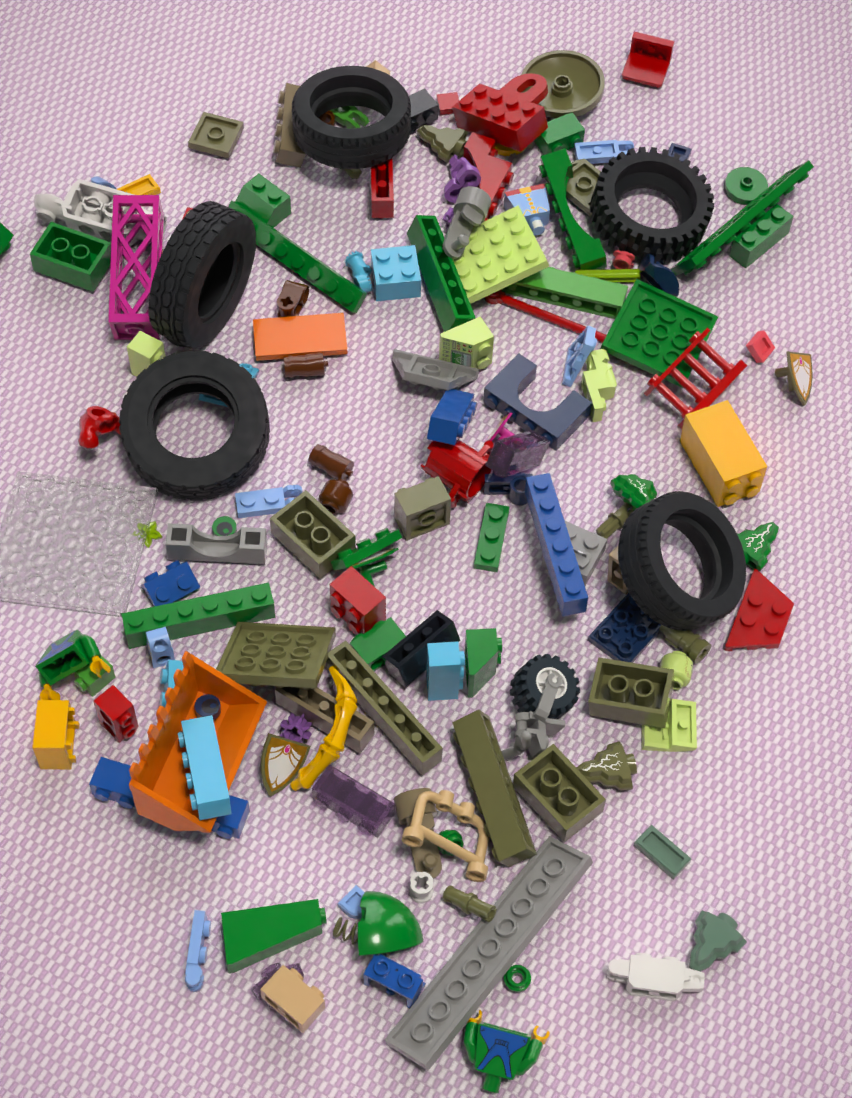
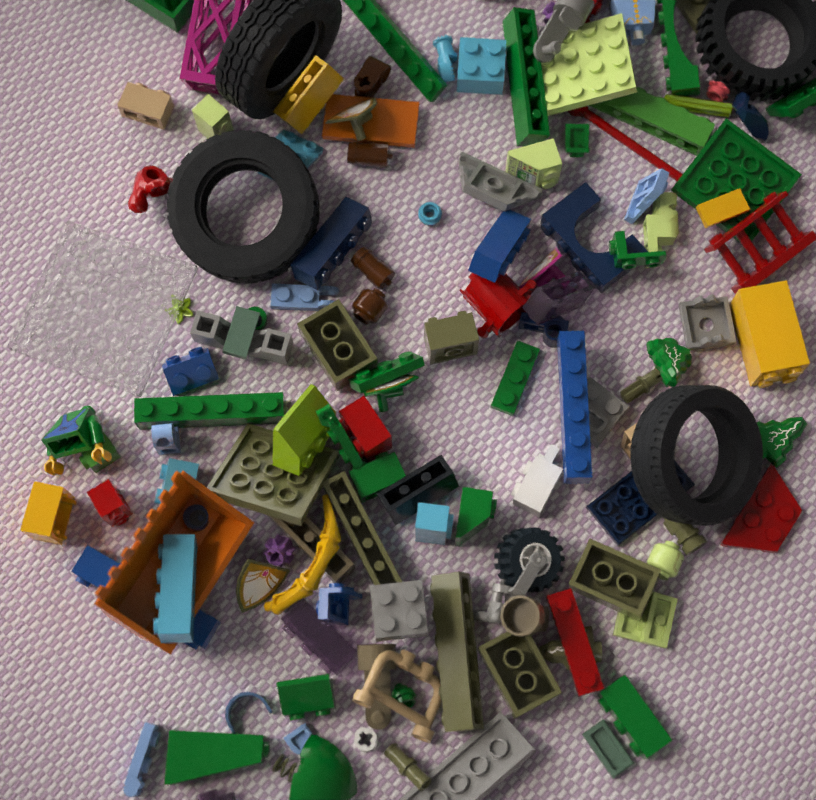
camera: 15 degrees right, 15 degrees up
(76, 357) = (146, 105): none -> tan brick
(215, 538) = (241, 332): none -> sand green tile
(236, 320) = (308, 94): none -> yellow brick
(287, 335) = (357, 116): none -> olive shield
(287, 445) = (331, 243): none -> dark blue brick
(291, 869) = (232, 702): none -> medium blue helmet
(297, 611) = (300, 434): none -> lime slope
(334, 608) = (338, 435): none -> green hinge
(353, 854) = (306, 696): none -> green slope
(362, 759) = (334, 603): none -> blue bracket
(375, 402) = (429, 207): none -> medium azure plate
(429, 751) = (399, 610): none -> light grey brick
(501, 321) = (576, 139): none -> green bracket
(537, 623) = (538, 483): none -> white hinge
(553, 730) = (524, 616): none -> dark tan piece
(579, 409) = (618, 248): none -> green bracket
(607, 755) = (575, 642): none -> red plate
(652, 354) = (722, 208): none -> yellow tile
(668, 445) = (714, 309): none -> light grey piece
(680, 816) = (633, 718): none -> green brick

